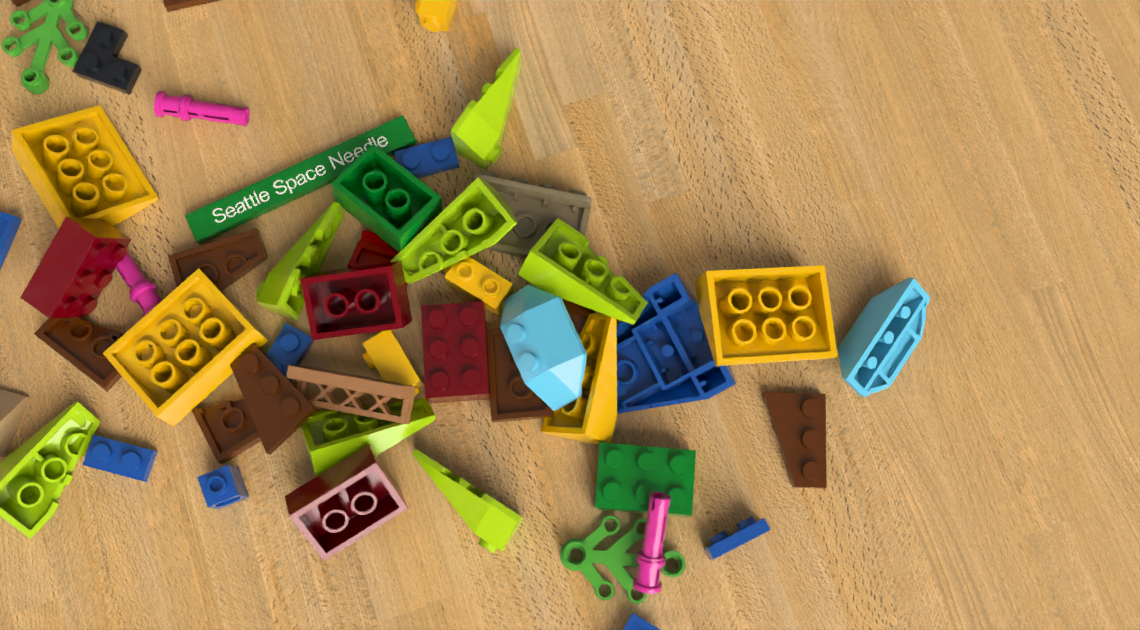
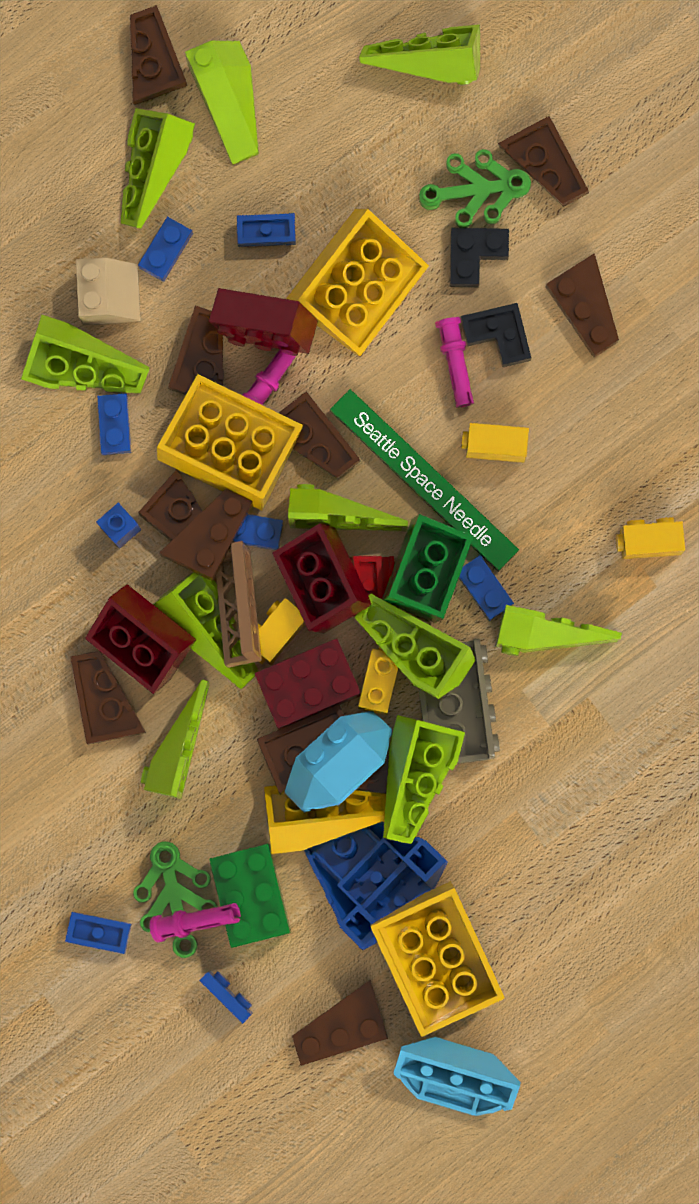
camera: 75 degrees right, 5 degrees up
(186, 57) = (502, 325): none -> black plate
(293, 98) = (495, 442): none -> yellow brick
(395, 566) = (101, 700): none -> reddish brown wing

